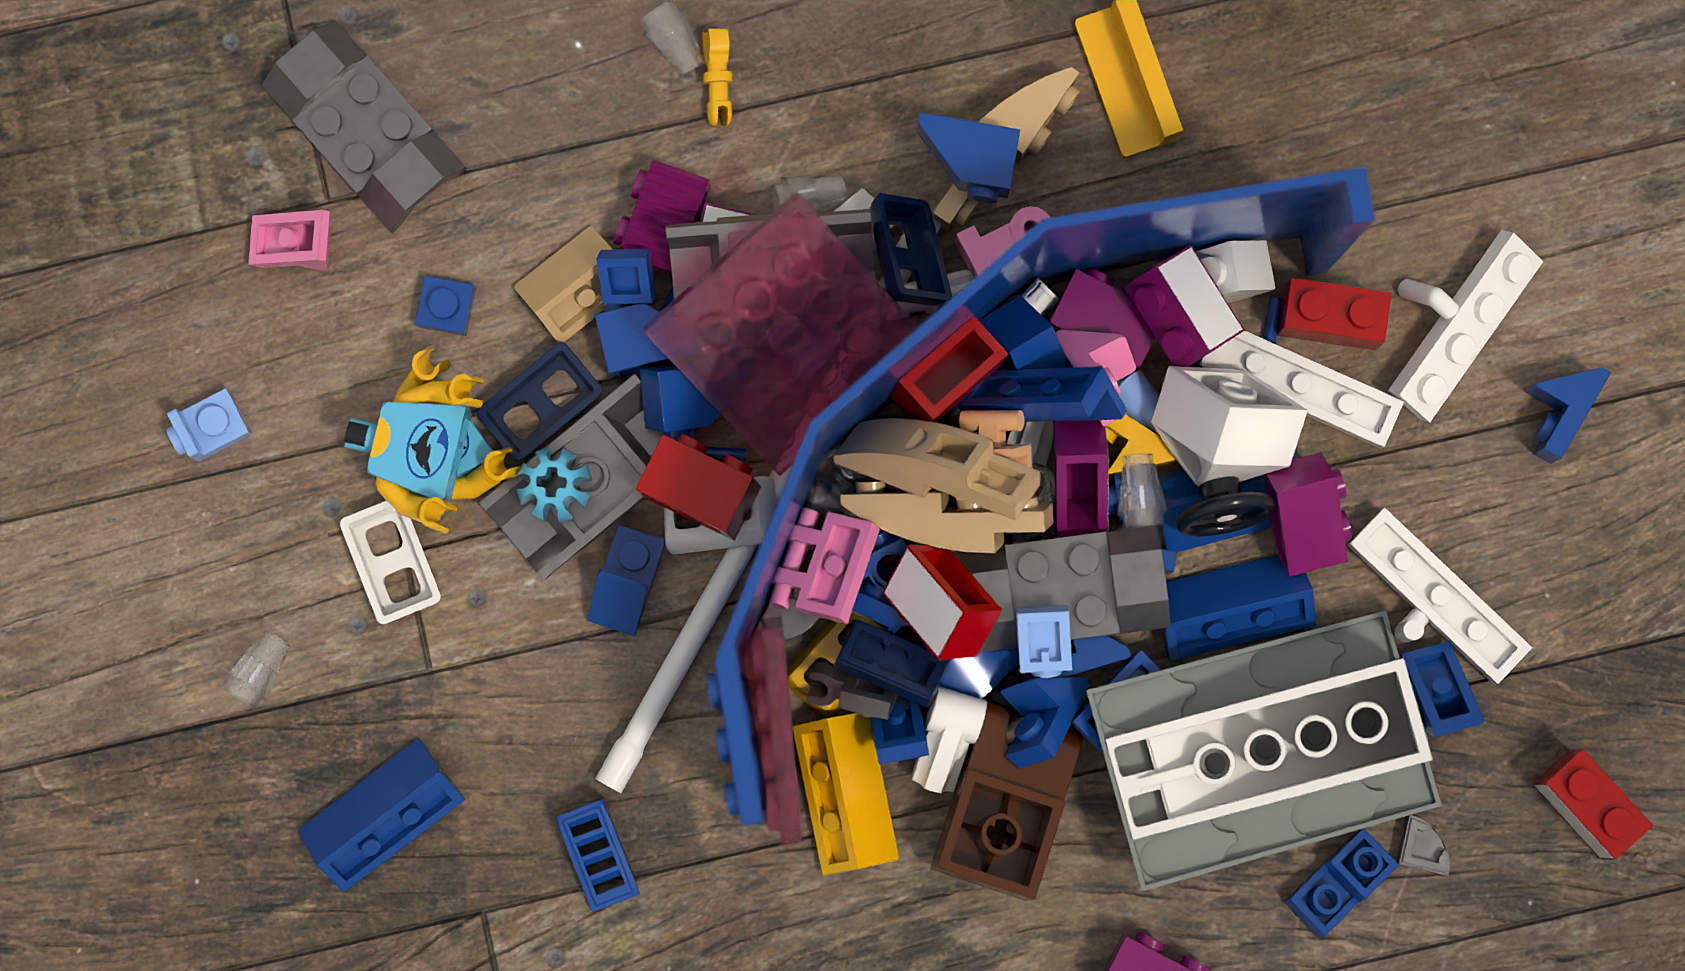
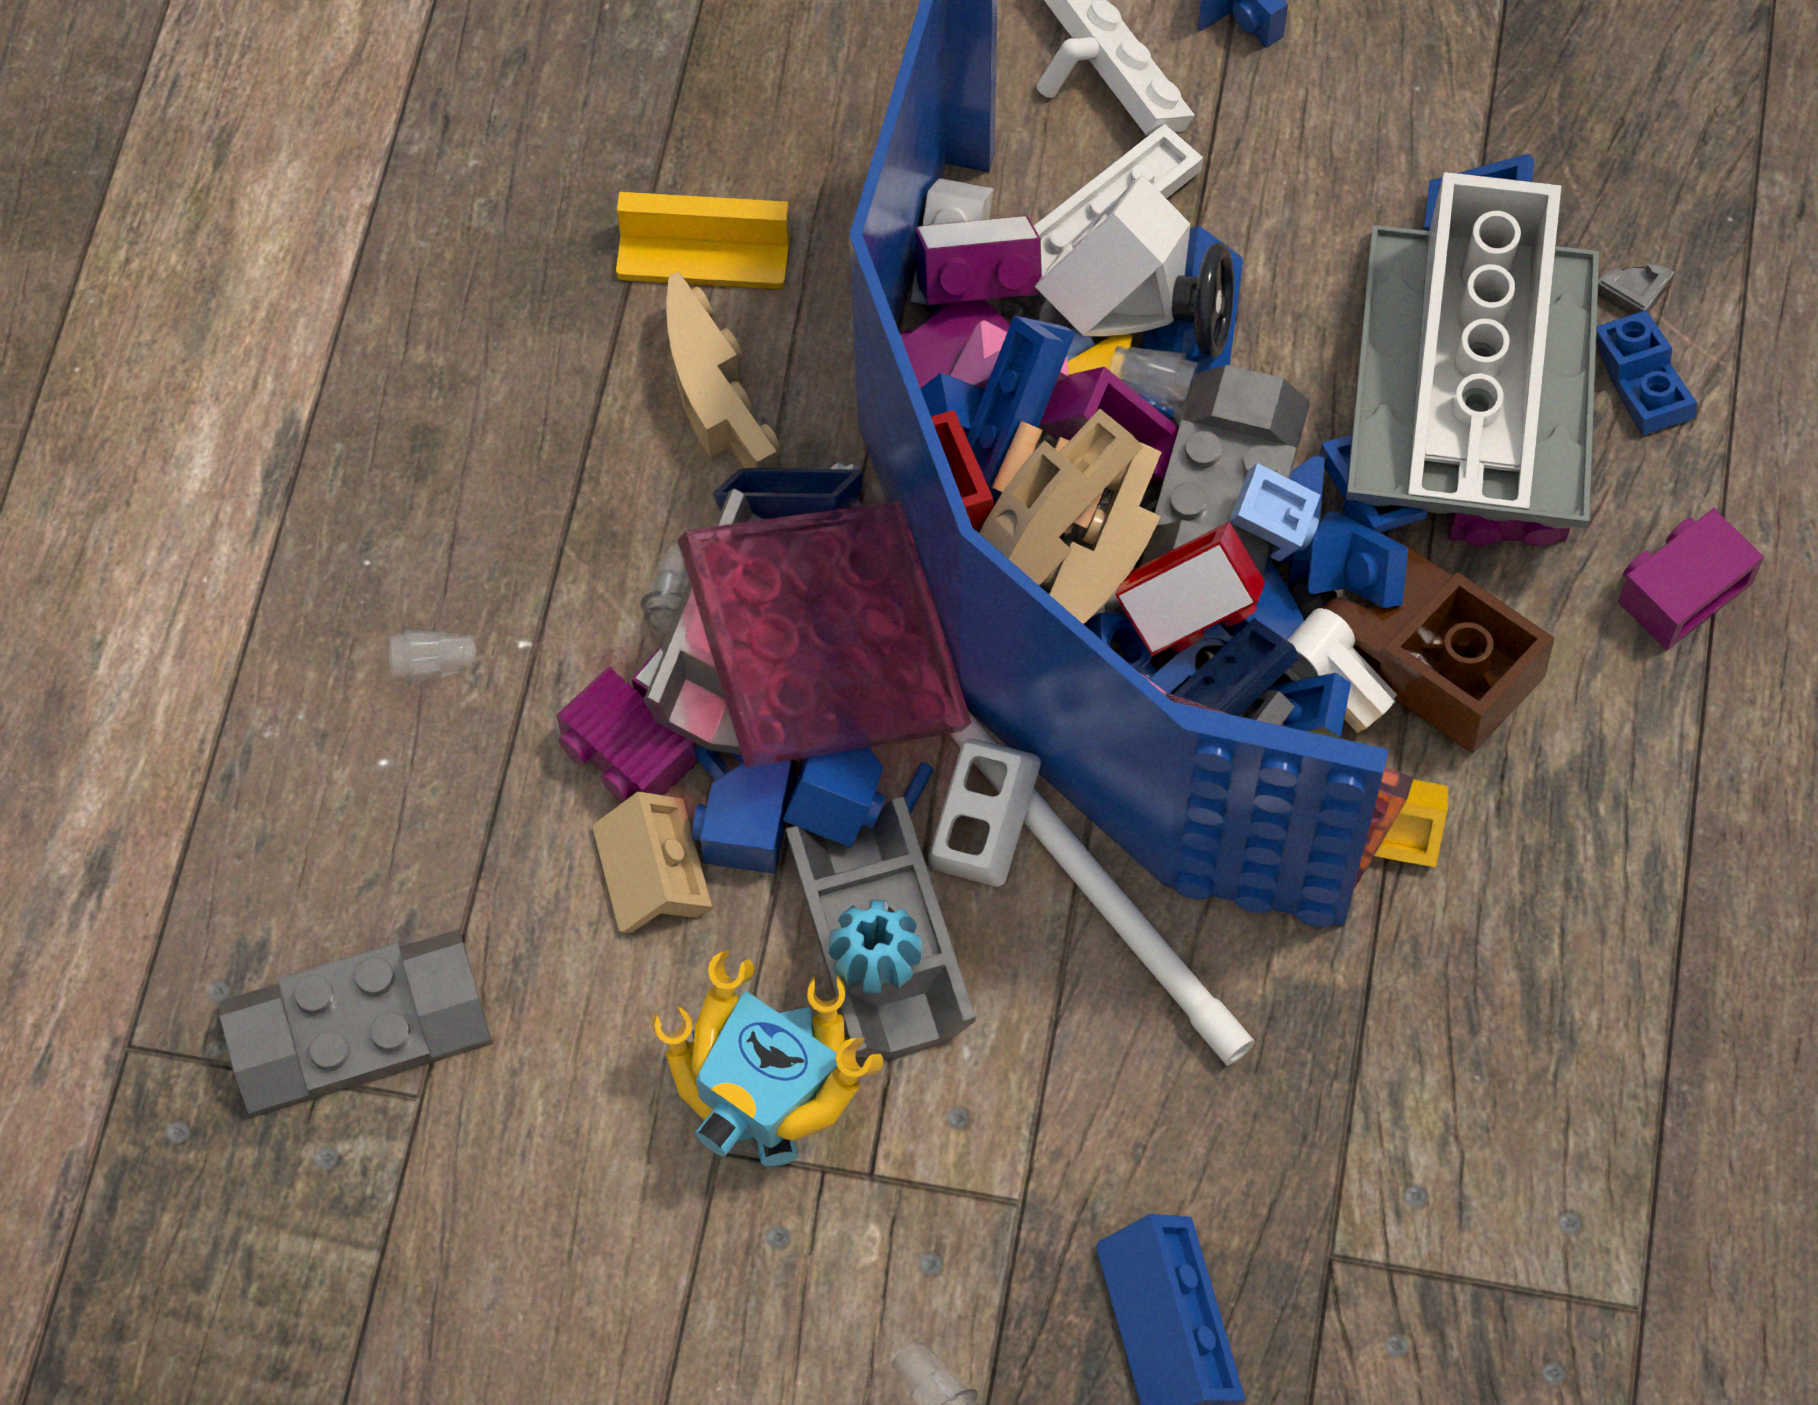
camera: 65 degrees left, 20 degrees down
(207, 426) = (617, 1333): light blue bracket -> none
(291, 240) = (448, 1137): bright pink slope -> none
(375, 569) = (876, 1164): white piece -> none
(445, 305) = (606, 1013): blue plate -> none
(528, 389) = (791, 951): dark blue piece -> none
(582, 815) = (1293, 1116): blue slope -> none
(626, 276) = (674, 787): blue plate -> none
(626, 580) = (1013, 942): blue slope -> none
(699, 485) = (948, 794): red brick -> none
(716, 57) = (467, 617): yellow piece -> none
(972, 154) = (715, 389): blue slope -> none
(982, 251) = (822, 407): bright pink leg -> none
(1236, 607) = (1313, 344): blue panel -> none
(1272, 319) = (1010, 210): blue piece -> none
(1308, 517) = (1262, 240): magenta brick -> none
(1334, 314) = (1044, 150): red brick -> none
(1438, 598) = (1379, 172): white plate -> none
(1592, 804) = (1652, 115): red brick -> none

